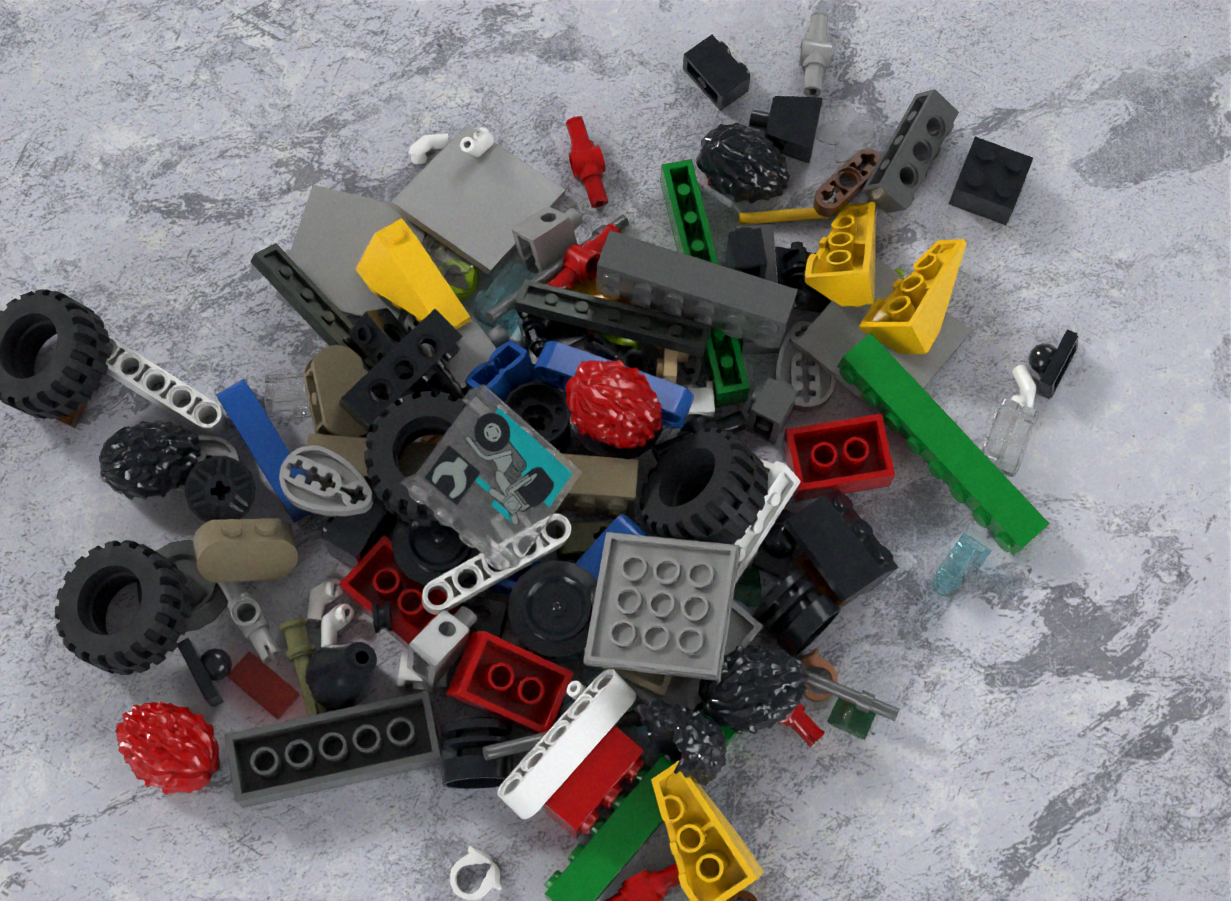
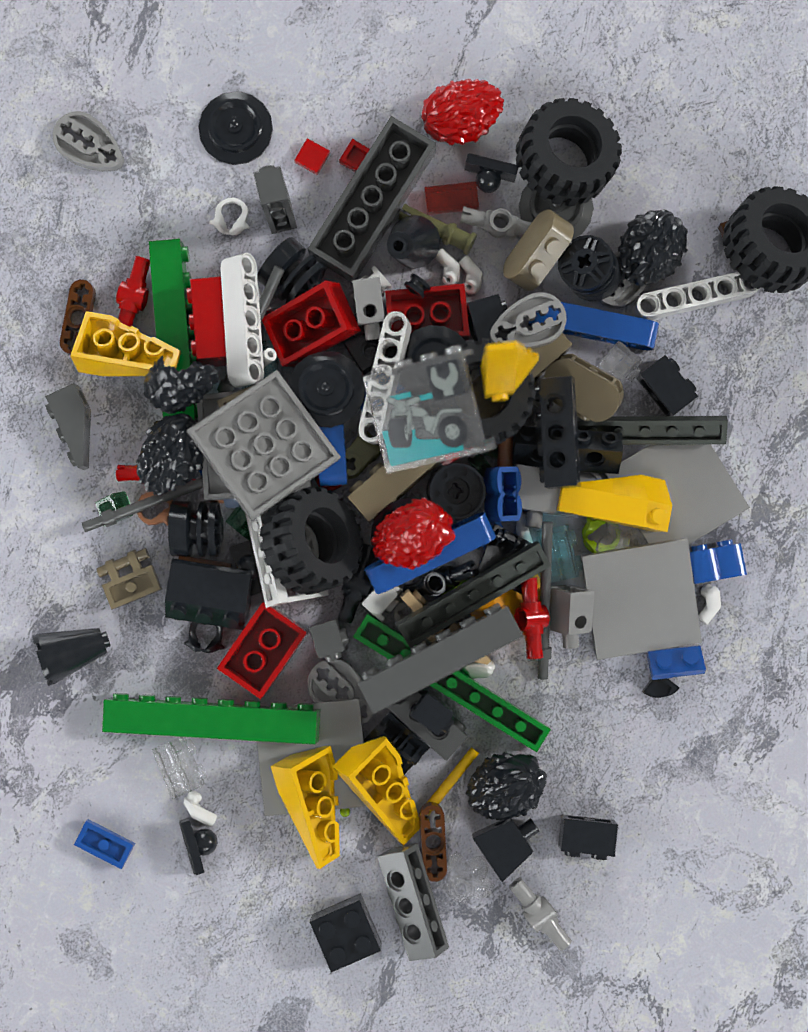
camera: 140 degrees right, 15 degrees up
(267, 338) = (667, 386): none -> black brick
(304, 812) = (353, 155): none -> red tile
(342, 855) = (312, 156): none -> red tile
(385, 167) = (718, 562): none -> blue brick
(395, 431) = (505, 368): none -> yellow wedge
(422, 822) = (275, 199): none -> dark grey brick
(479, 145) = (676, 628): white arm -> none
(506, 128) = (676, 662): none -> blue plate
(537, 126) = (660, 688): none -> black tile
(587, 162) = (603, 691): red pin -> none
(809, 833) = (74, 422): none -> dark grey slope
(880, 509) = (194, 645): none -> black piece
(903, 628) = (131, 586): none -> dark tan plate
(952, 571) = (136, 655): clear light blue leg -> none
(1015, 622) = (68, 651): none -> black cone
(1135, 438) = (104, 844): none -> blue plate

